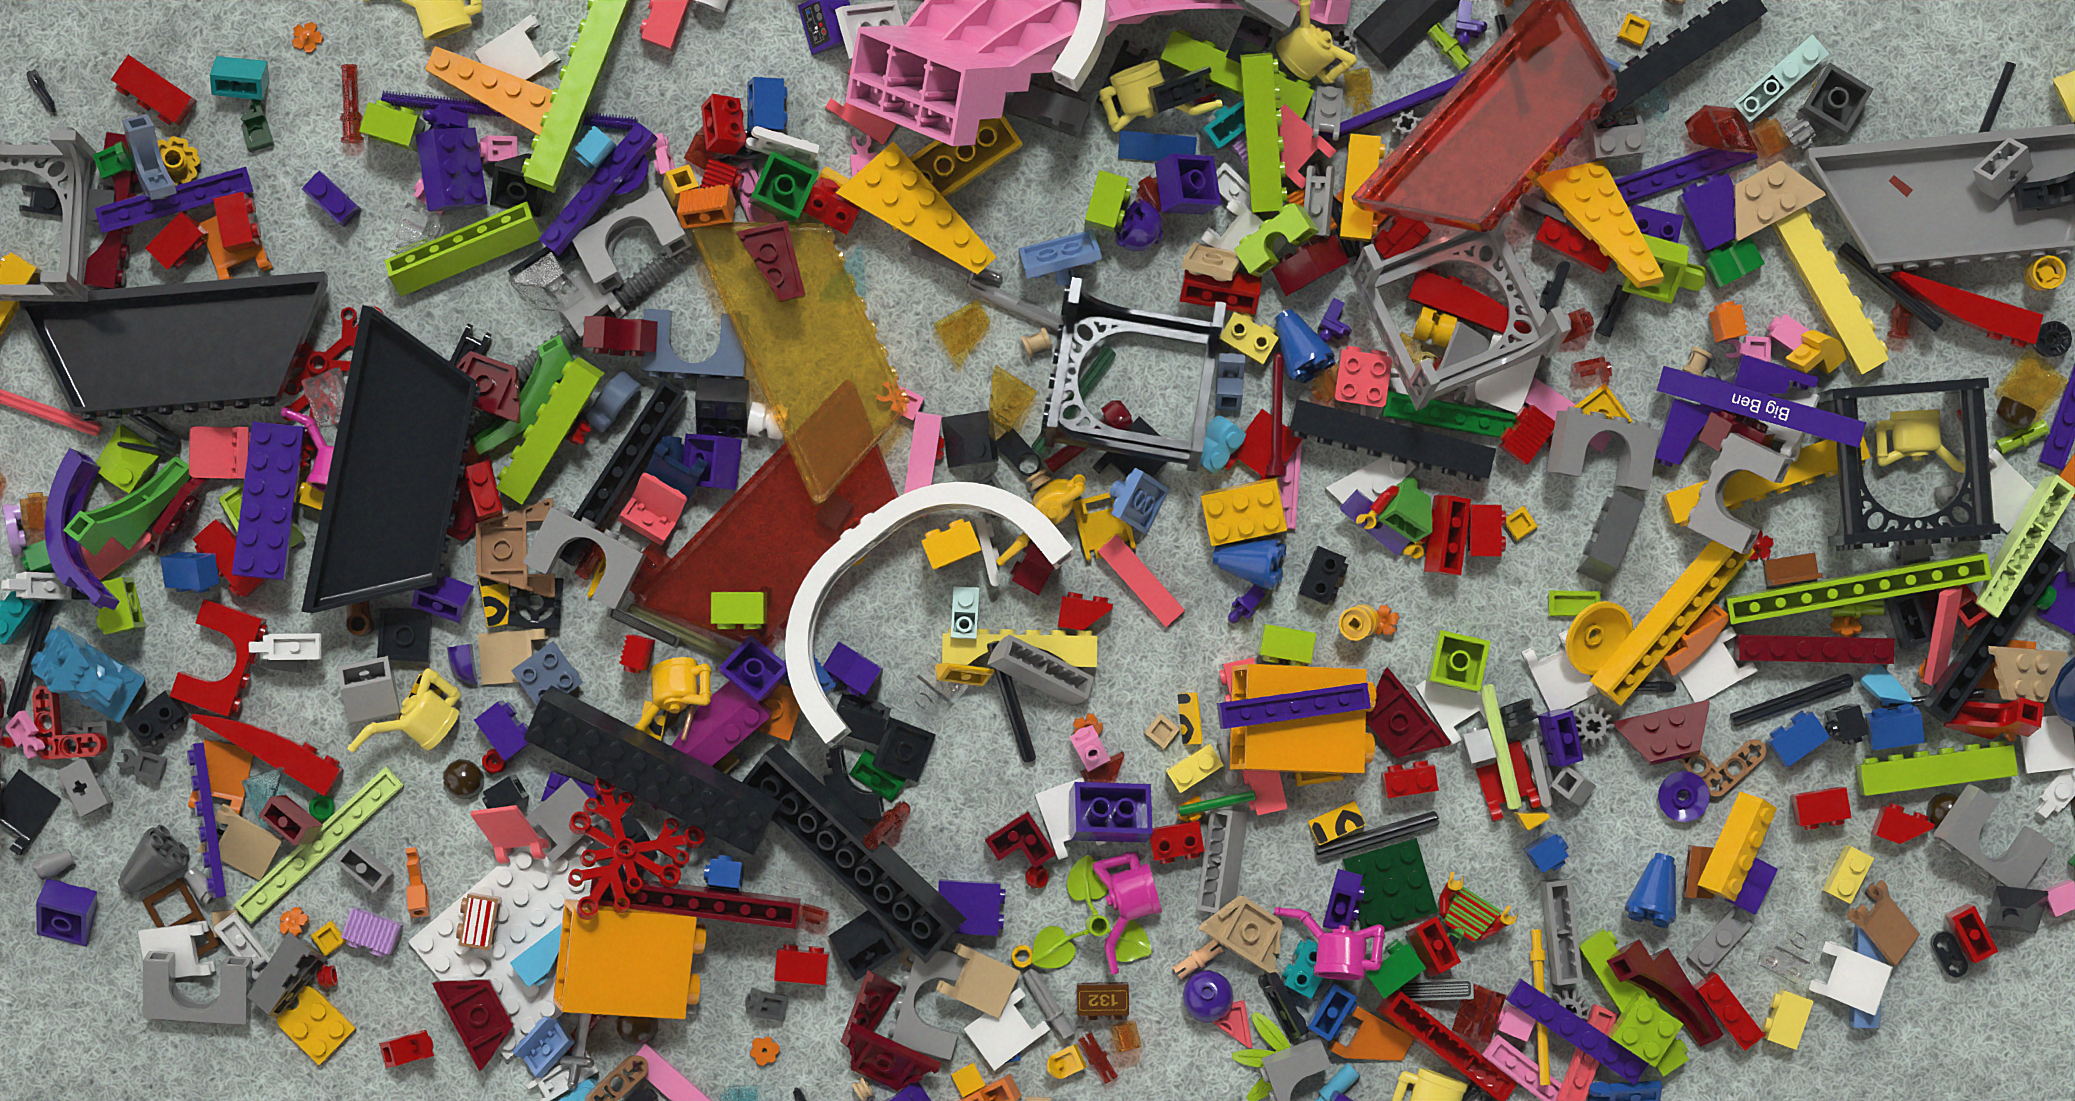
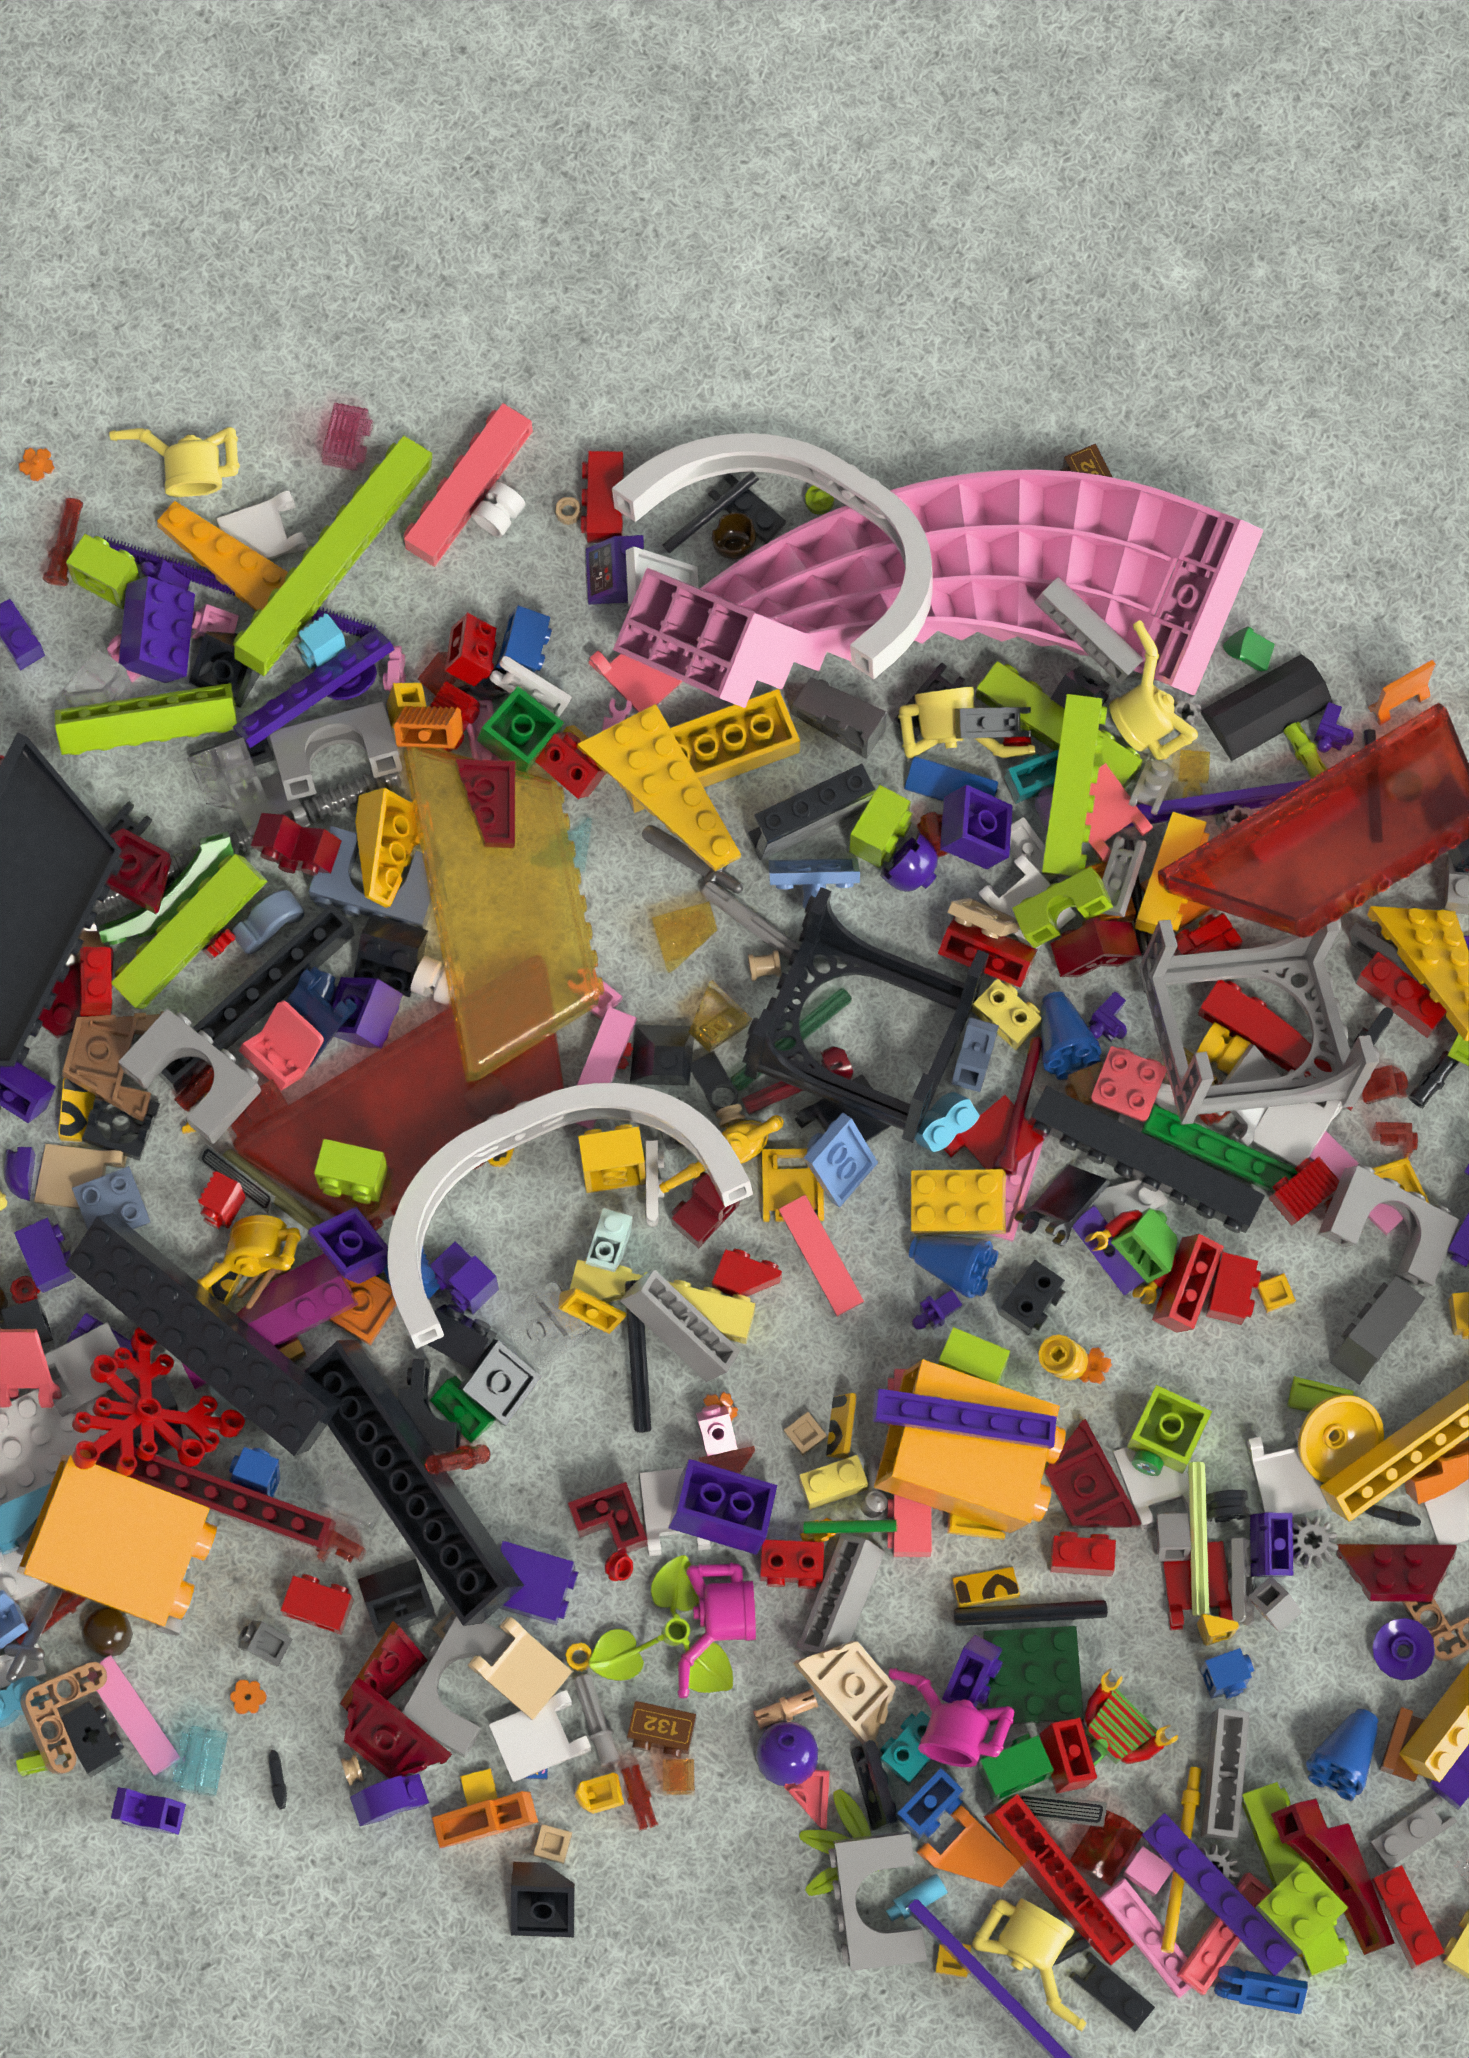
camera: 15 degrees right, 15 degrees down
(693, 310) = (385, 842): none -> yellow wedge
(1046, 207) = (811, 811): none -> black panel
(1331, 490) = (1063, 1203): none -> black flag
(1446, 692) = (1147, 1463): none -> green tile

